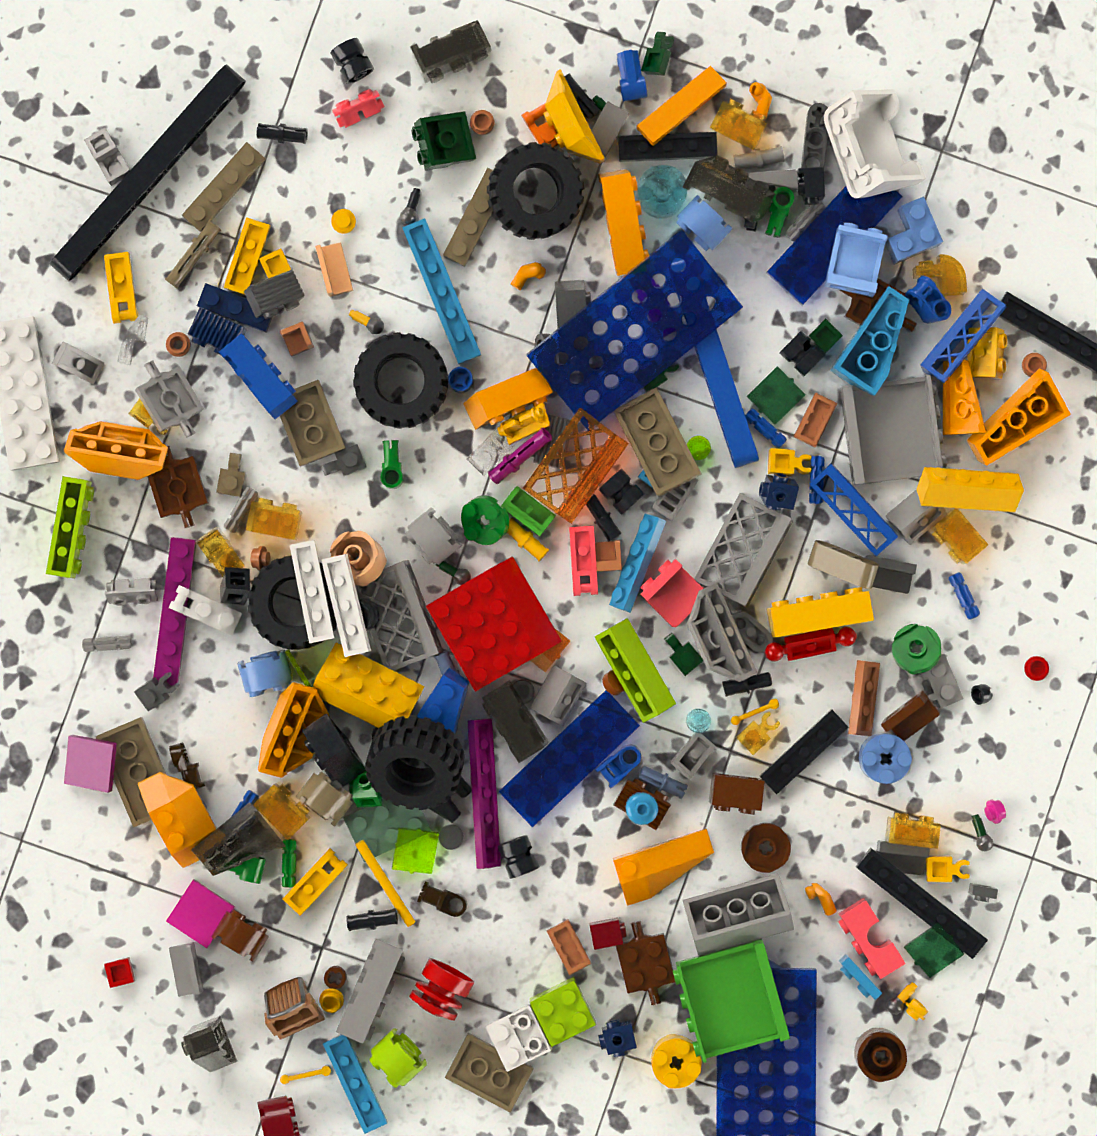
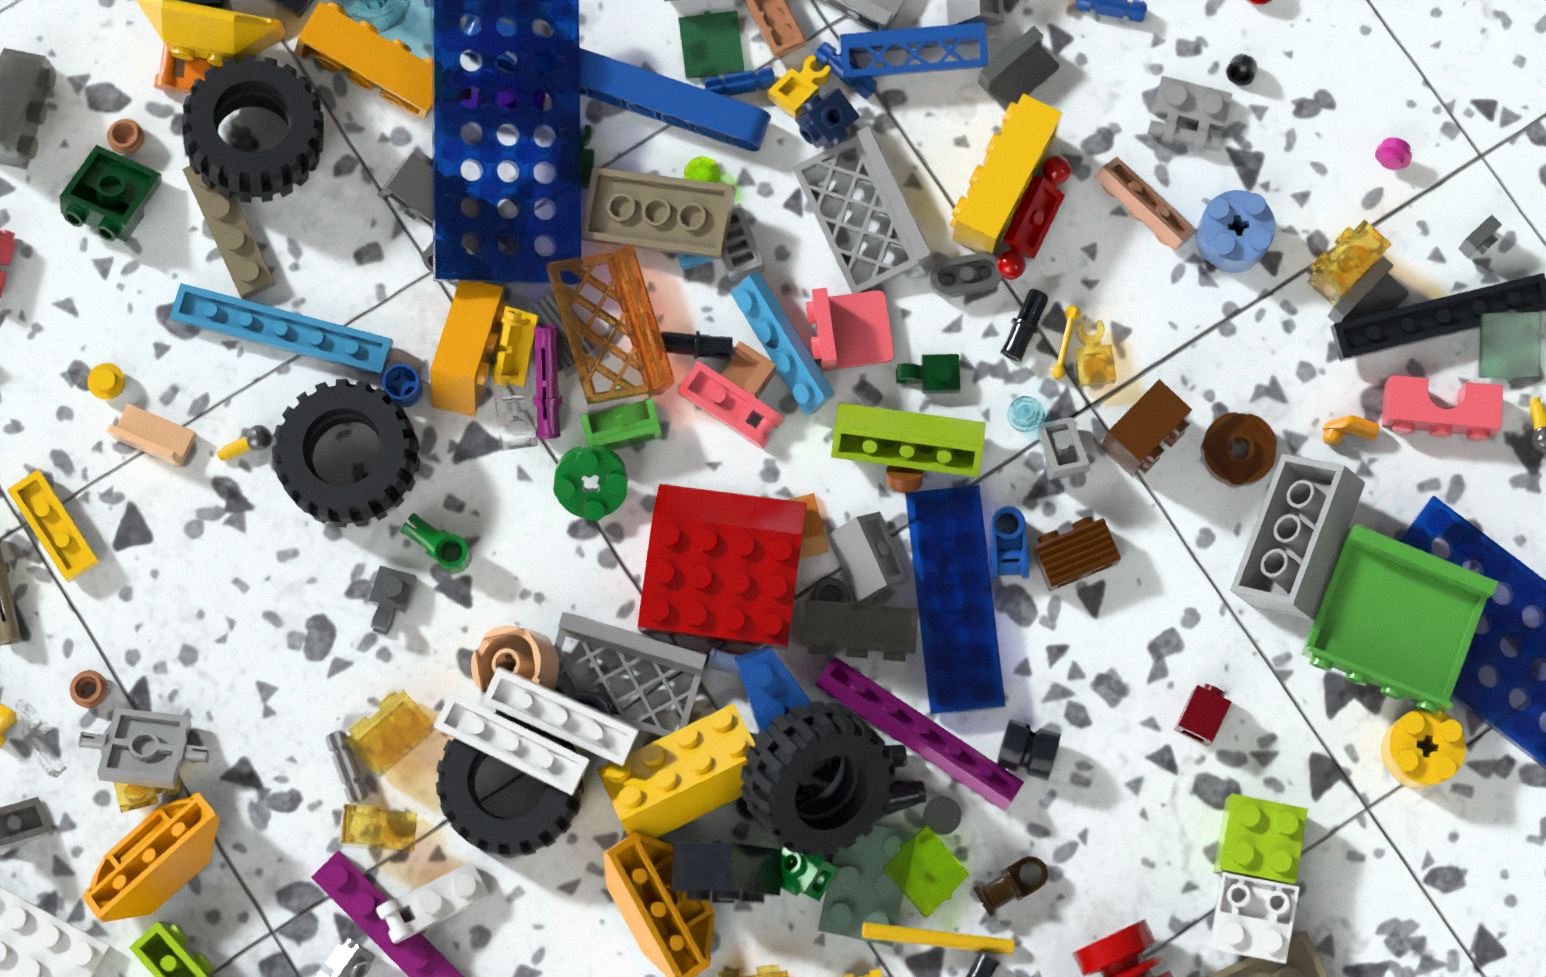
camera: 50 degrees left, 10 degrees down
(178, 488) = (259, 822): reddish brown plate -> none
(213, 330) = (112, 630): dark blue brick -> none
(230, 479) = (301, 750): dark tan plate -> none
(231, 307) = (102, 587): dark blue plate -> none
(235, 586) = (432, 841): black brick -> none
(259, 376) = (203, 615): blue wedge -> none
(260, 557) = (422, 787): nougat plate -> none
(265, 672) = (566, 885): medium blue brick -> none
(274, 294) = (124, 524): dark grey brick -> none
(275, 263) = (91, 499): yellow plate -> none
(297, 338) = (197, 540): nougat panel -> none
(297, 667) = (588, 839): clear neon green piece -> none
(311, 425) = (309, 603): dark tan plate -> none
(324, 798) = (777, 930): dark tan brick -> none
(409, 214) = (161, 299): piece -> none
(433, 537) = (562, 554): light grey brick -> none
(460, 575) = (632, 564): piece -> none
(526, 540) = (654, 452): yellow pin -> none
(528, 271) = (339, 215): light orange arm -> none
(568, 947) = (1185, 774): nougat plate -> none
(617, 1028) = (1353, 789): dark blue brick -> none
(621, 491) = (670, 293): black wheel -> none
(641, 808) = (1082, 550): dark azure head -> none
(645, 963) = (1274, 696): reddish brown plate -> none
(657, 866) = (1165, 597): light orange wedge -> none
(662, 782) = (1068, 510): sand blue axle -> none
(719, 636) = (943, 309): light grey wedge -> none
(804, 751) = (1156, 317): black plate -> none
(843, 564) = (968, 107): beam -> none
(851, 970) = (1495, 454): dark azure plate -> none
(911, 716) = (1208, 164): reddish brown panel -> none
(918, 635) = (1144, 116): green plate -> none
(941, 869) = (1419, 264): yellow plate -> none
(984, 841) = (1420, 193): piece -> none

